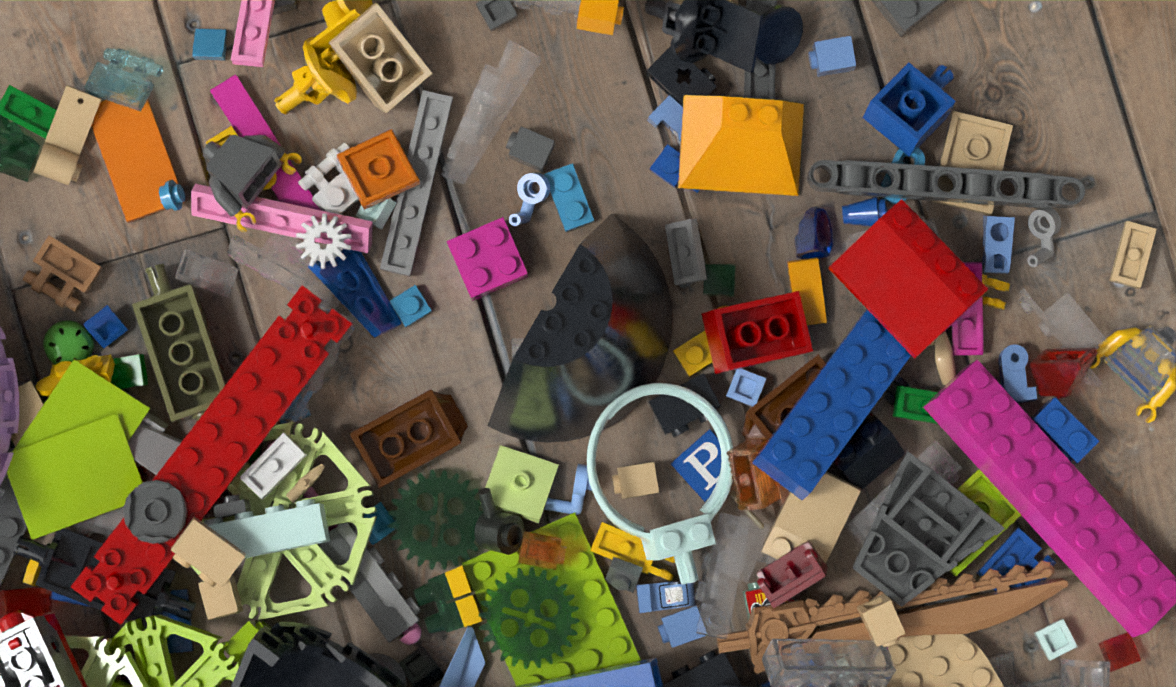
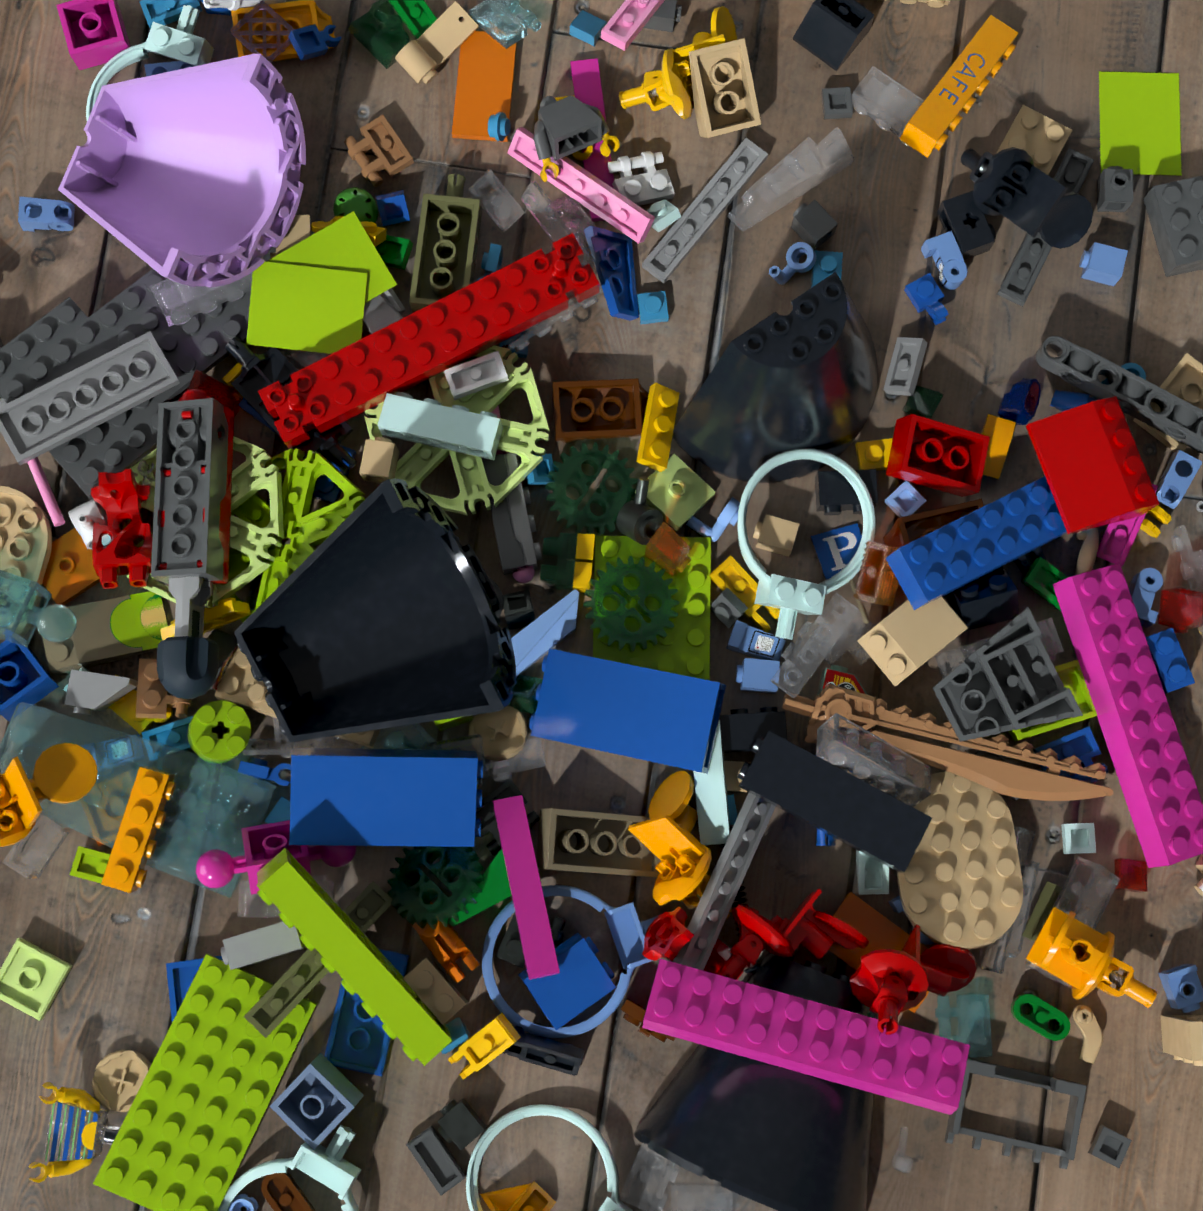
camera: 25 degrees right, 5 degrees down
(155, 512) = (359, 359): dark grey tile -> none
(207, 552) = (386, 412): tan brick -> none
(231, 338) = (492, 261): none -> dark azure plate
(231, 505) = (423, 390): dark grey plate -> none
(305, 483) = (496, 402): tan helmet -> none
(314, 249) = (610, 222): white gear -> none
(378, 169) = (679, 181): orange plate -> none
(473, 428) = (658, 427): none -> yellow plate
(487, 259) = (735, 295): dark pink brick -> none
(740, 145) = (994, 297): light orange slope -> none
(791, 573) = (876, 668): dark red hinge -> none
(881, 621) = (937, 745): tan brick -> none
(911, 107) = (1153, 331): blue brick -> none

